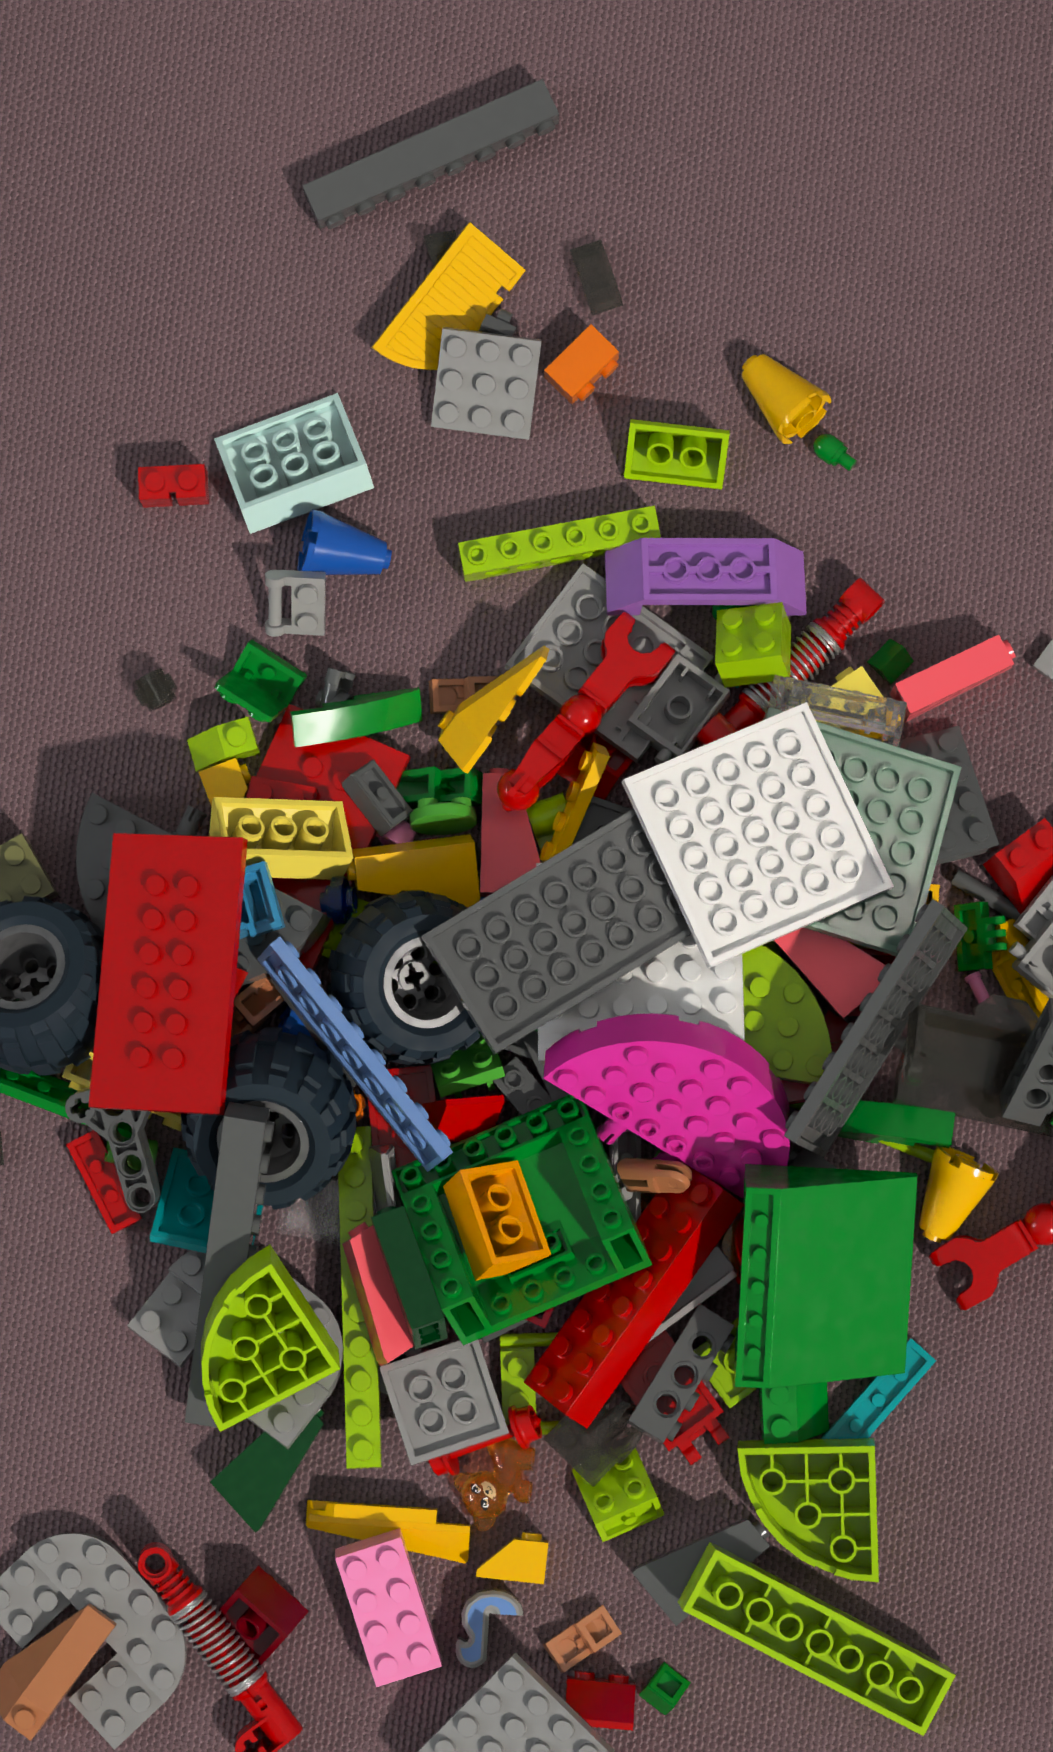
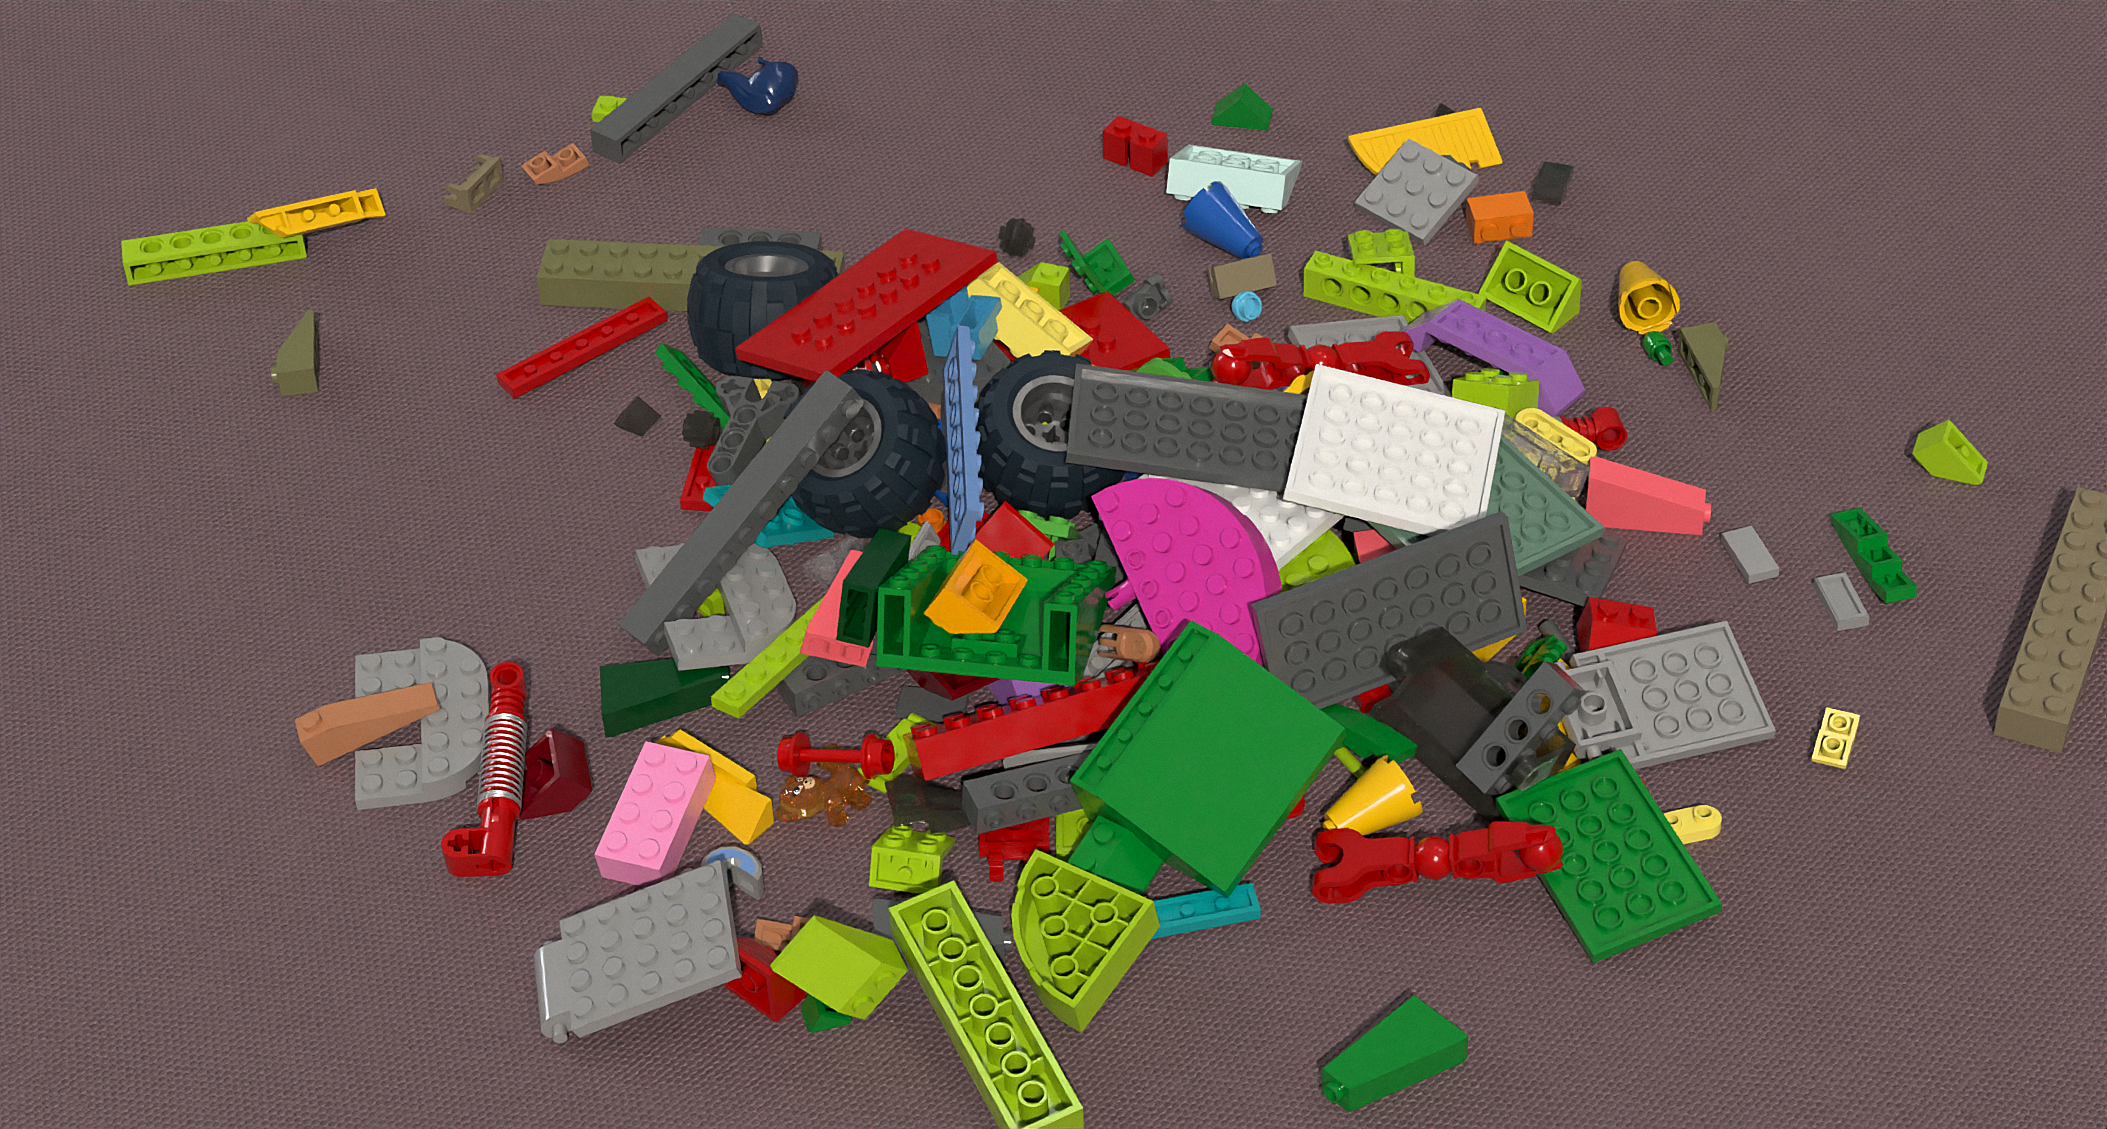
camera: 35 degrees right, 40 degrees down
(74, 1150) = (701, 429): none -> clear smoke gear
(233, 359) = (1243, 110): none -> green slope
(261, 1342) = (721, 557): lime brick -> none
(307, 602) = (1172, 238): light grey plate -> none
(356, 717) = (1150, 307): green slope -> none
(376, 797) = (1121, 349): dark grey slope -> none
(409, 613) = (1242, 275): none -> dark tan hinge
(429, 640) = (1246, 306): none -> medium azure plate
(431, 155) = (1485, 73): dark grey brick -> none
(443, 1401) = (828, 701): light grey plate -> none
(472, 724) = (1280, 328): yellow wedge -> none
(518, 1560) = (787, 853): yellow slope -> none
(519, 503) = (1383, 247): none -> lime bracket
(678, 1667) = (841, 966): none -> lime slope
(859, 667) = (1558, 434): none -> light yellow plate
(887, 442) = (1704, 355): none -> olive slope

